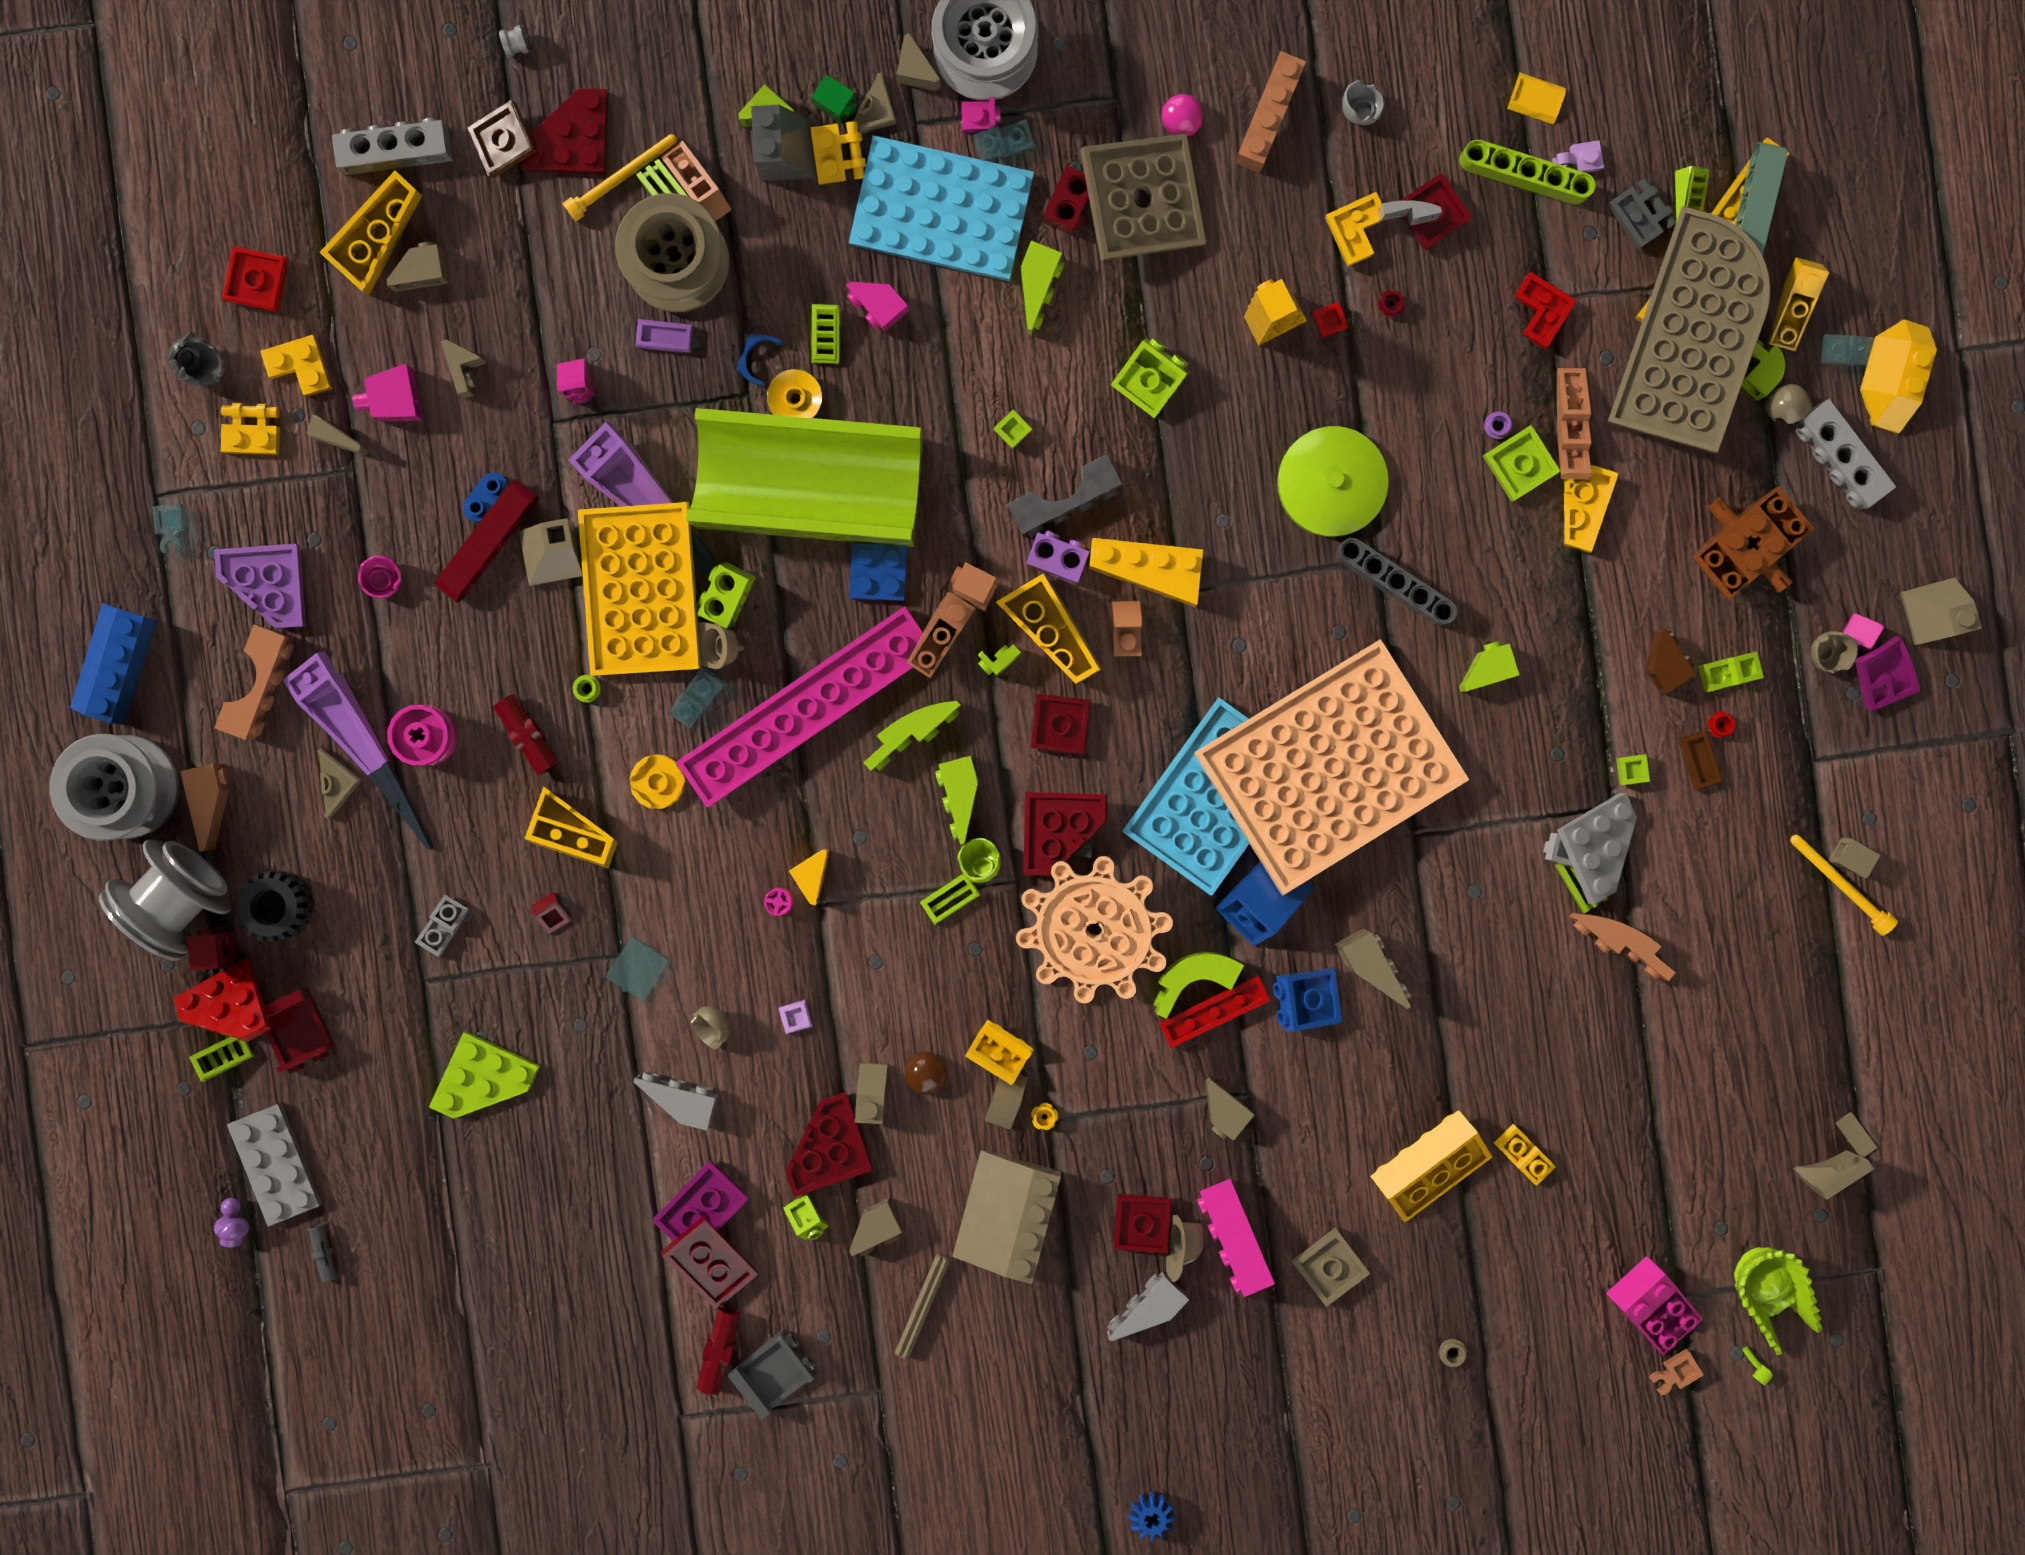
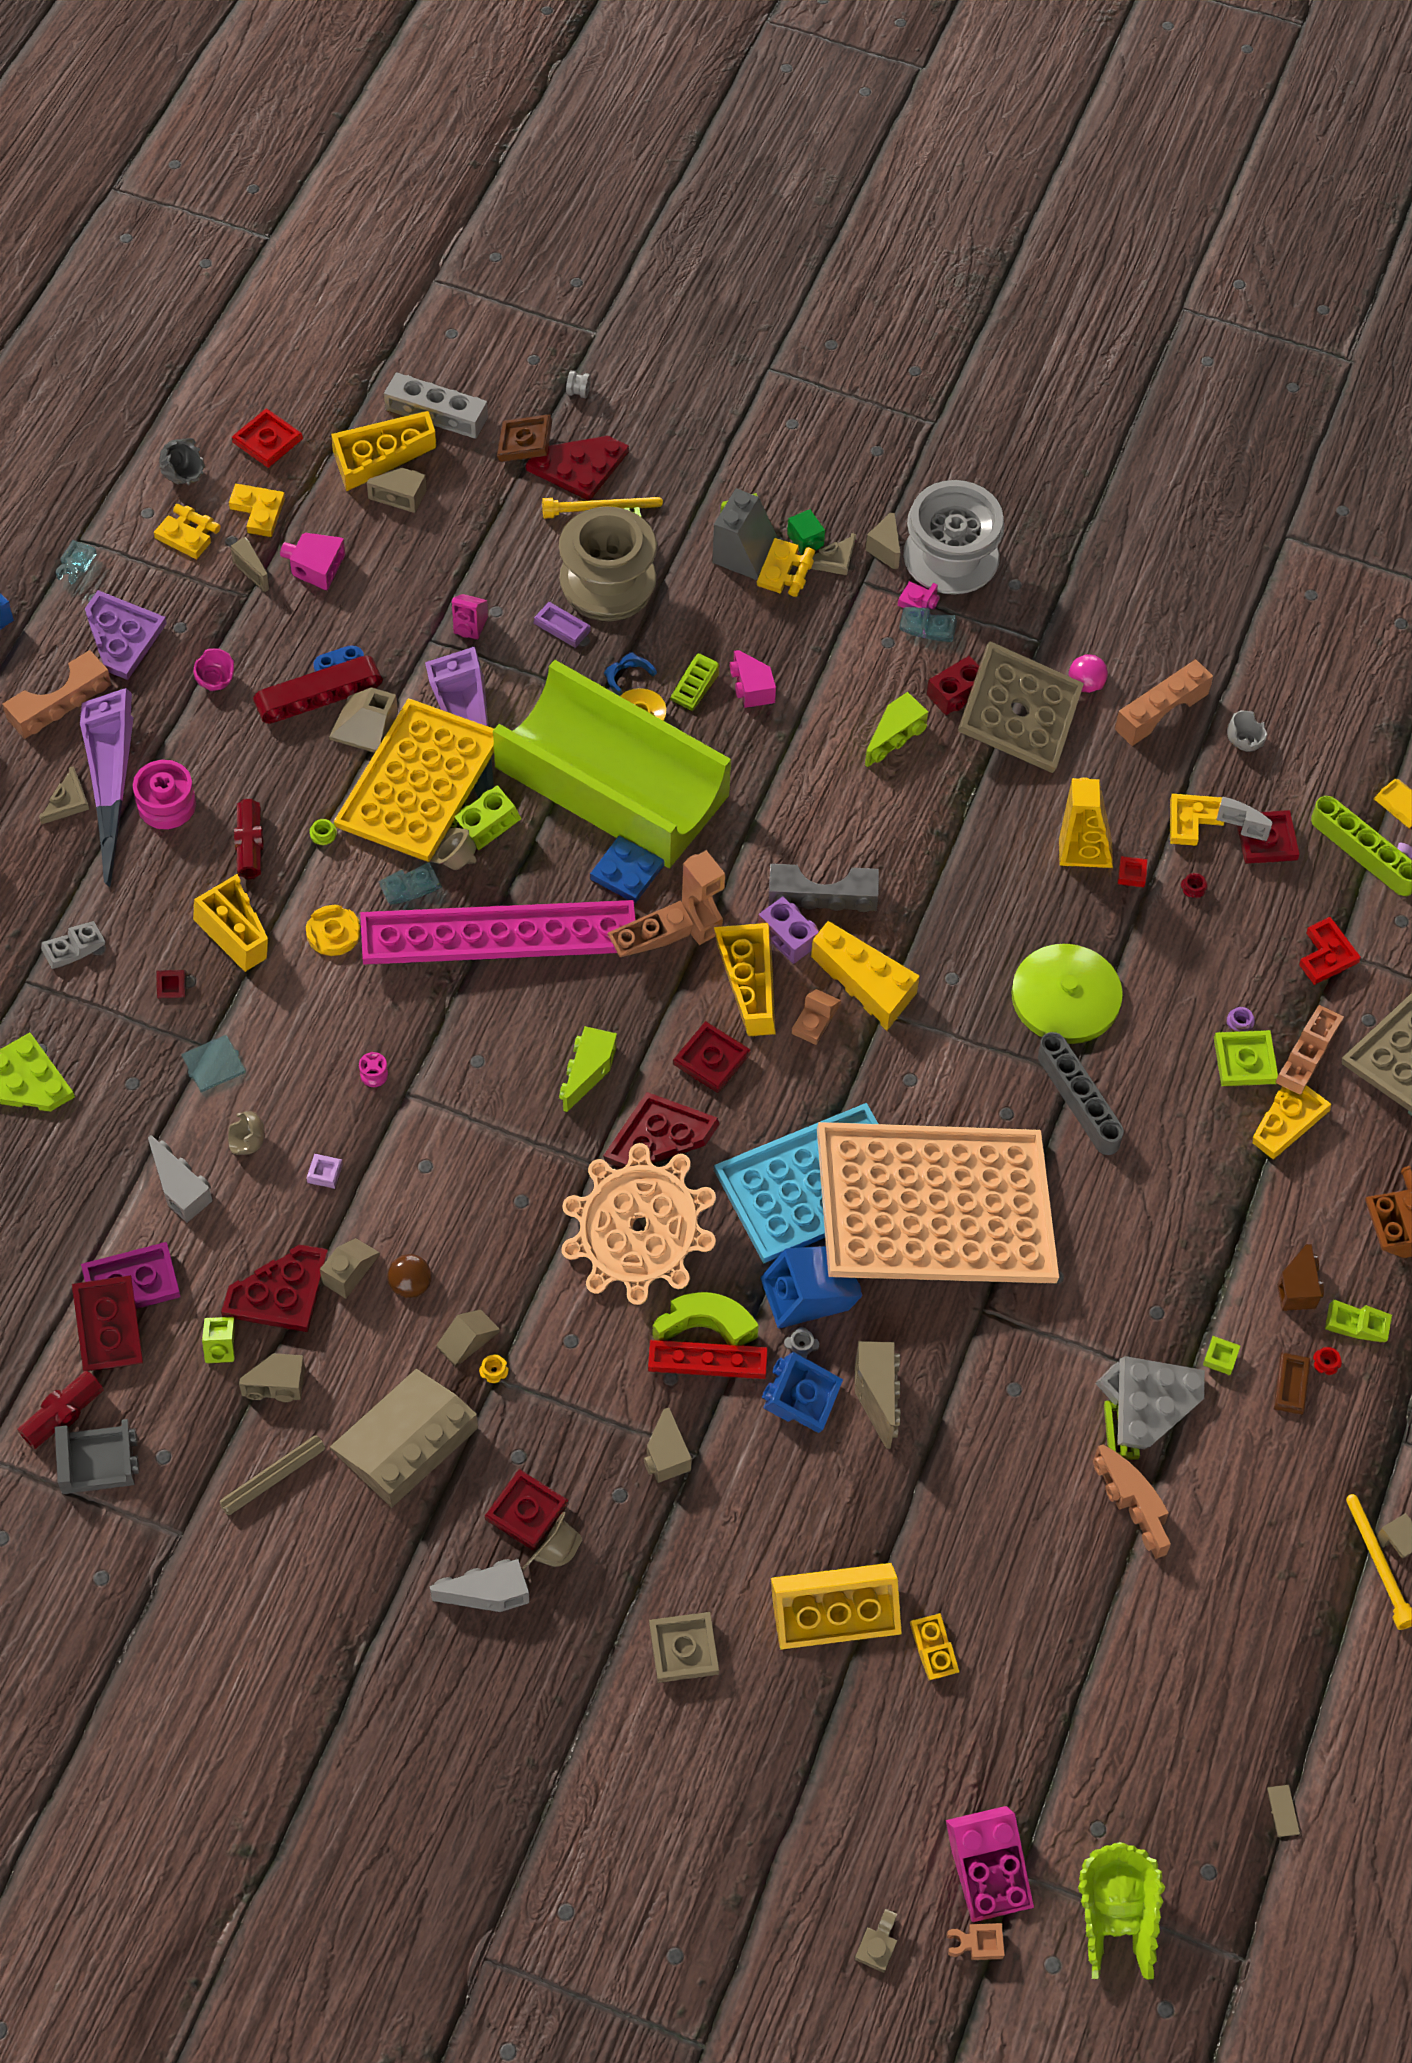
camera: 25 degrees right, 30 degrees down
(459, 361) = (386, 563): dark tan slope -> none
(695, 180) = (660, 523): nougat slope -> none
(810, 875) = (417, 1061): yellow slope -> none
(920, 724) = (586, 992): lime slope -> none
(930, 911) = (525, 1151): lime tile -> none
(941, 208) = (847, 645): medium azure plate -> none
(979, 860) = (571, 1122): lime hair -> none
(999, 1052) = (489, 1288): yellow bracket -> none
(1004, 657) = (690, 983): lime bracket -> none
(1012, 429) = (808, 820): lime plate -> none
(1151, 376) = (951, 837): lime plate -> none
(1154, 1525) = (357, 1797): blue gear -> none
(1236, 1237) = (607, 1569): dark pink wedge -> none
(1288, 947) = (804, 1336): none -> light grey plate
(1458, 1358) = (761, 1789): dark tan plate -> none
(1490, 666) = (1128, 1203): lime slope -> none
(1602, 1415) = (877, 1945): none -> dark tan plate
(1762, 1374) = (1068, 1995): lime hand -> none
(1834, 1174) = (1252, 1818): dark tan plate -> none

